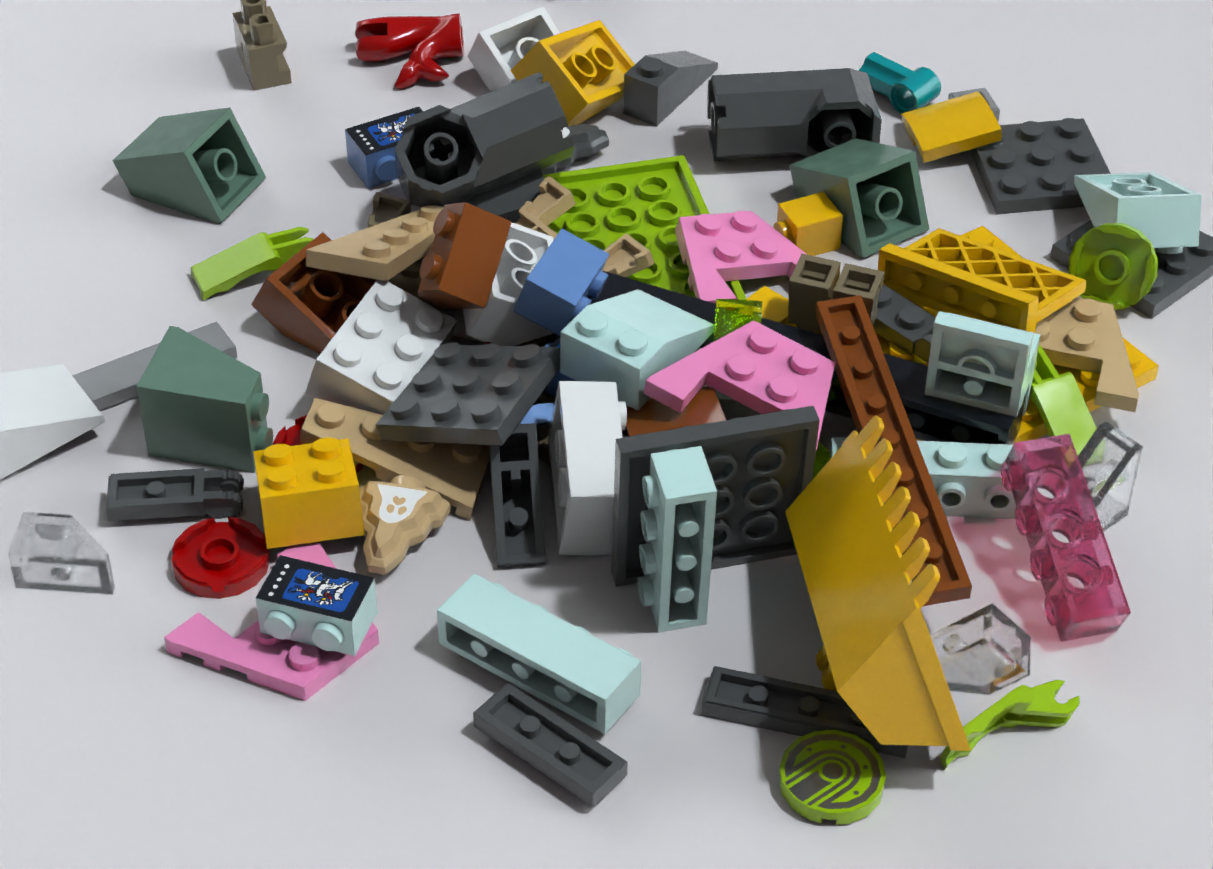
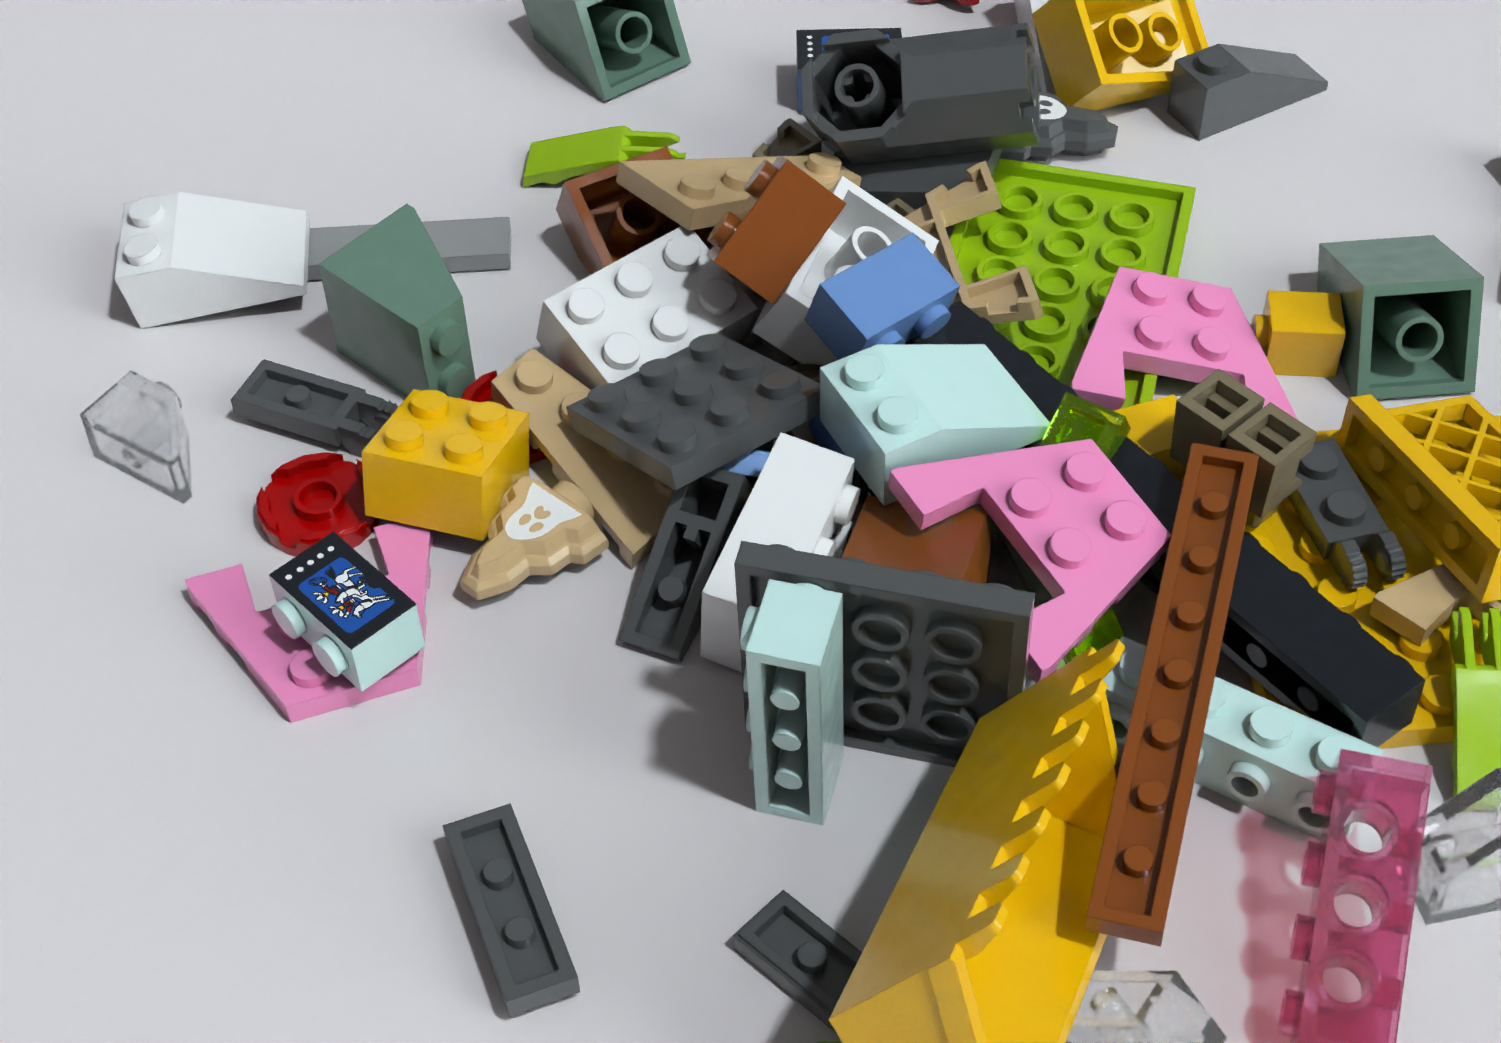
camera: 30 degrees right, 5 degrees up
(539, 652) = (574, 782): light aqua brick -> none
(789, 113) = (1365, 174): dark grey brick -> none
(981, 363) = (1376, 612): light aqua bracket -> none

